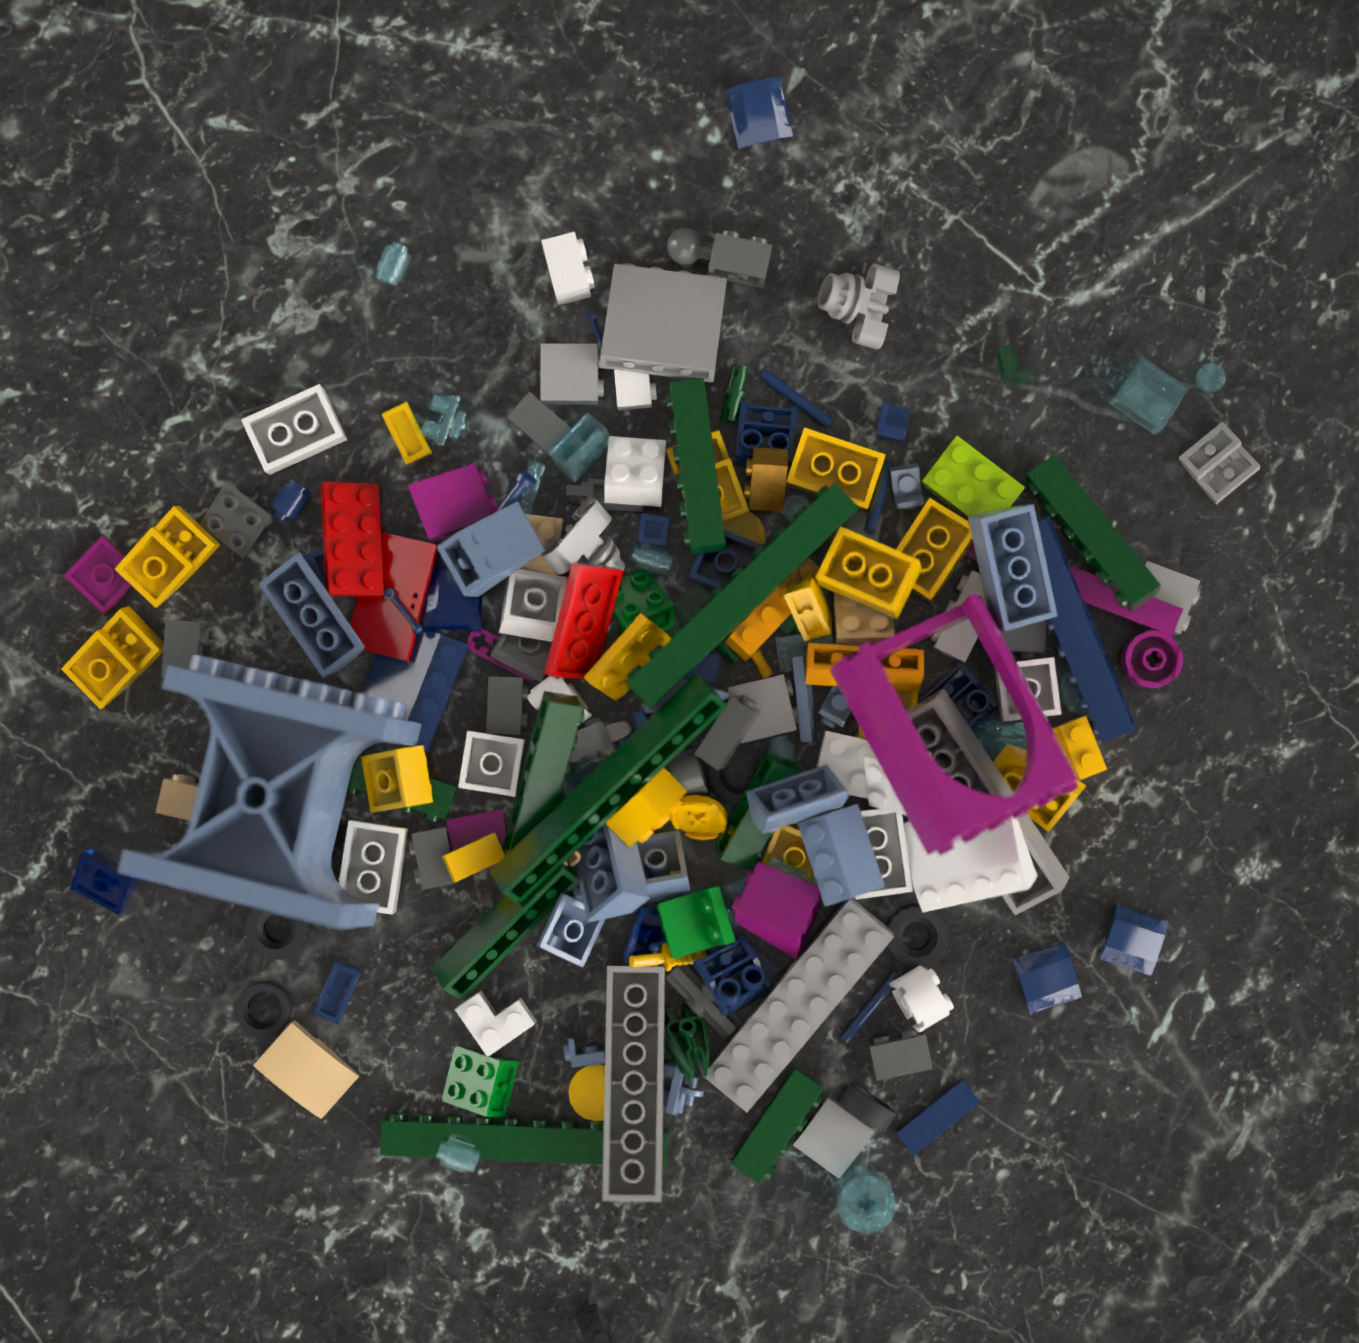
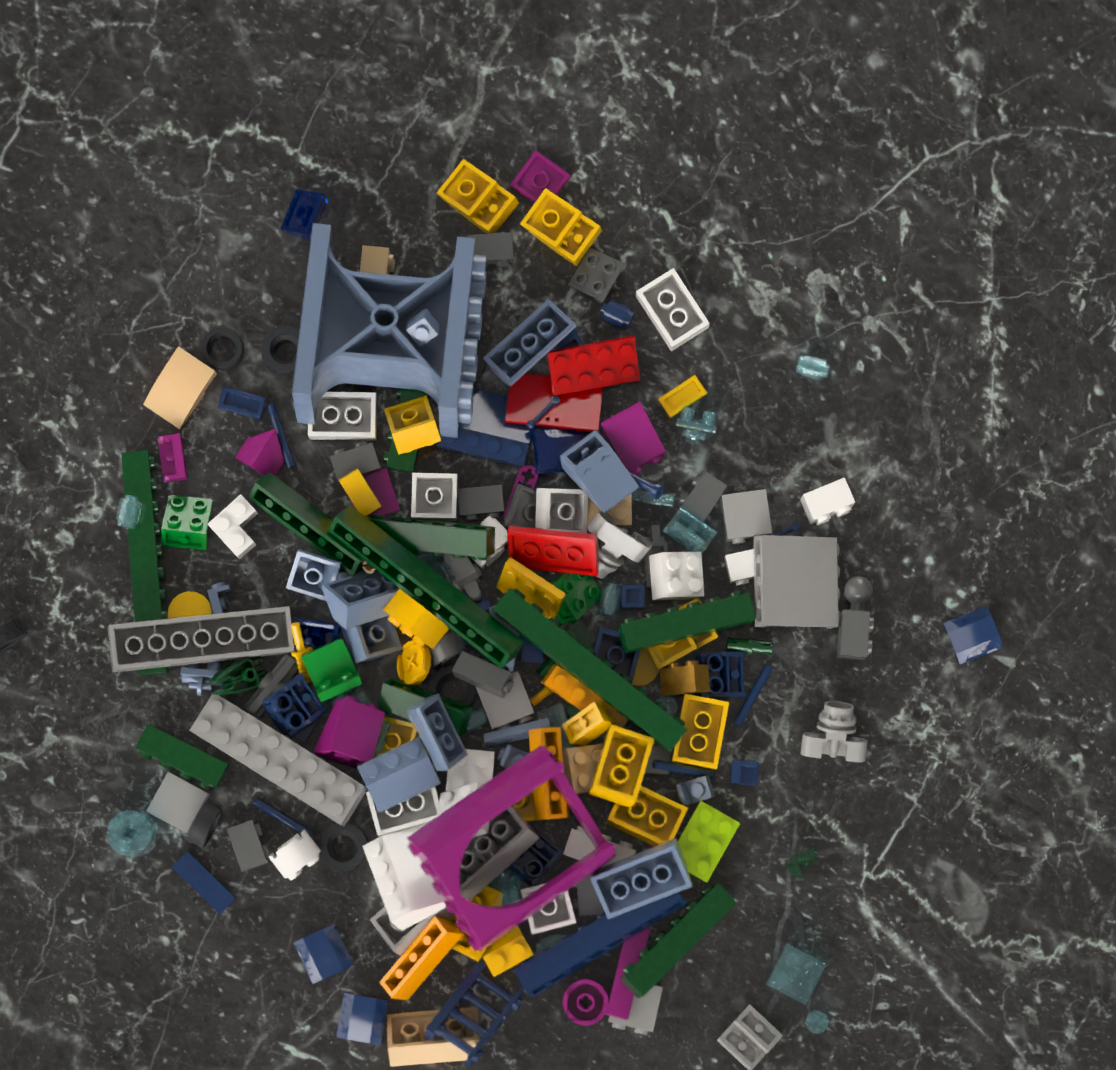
camera: 80 degrees right, 5 degrees down
(274, 748) = (422, 327): none -> sand blue brick
(386, 948) = (281, 436): none -> dark blue bar
(396, 1089) = (172, 458): none -> magenta hinge
(405, 974) = (262, 453): none -> magenta slope
(1072, 857) = (421, 958): none -> light orange brick
(1143, 826) = (465, 993): none -> dark blue fence
(1167, 854) = (410, 1046): none -> tan slope

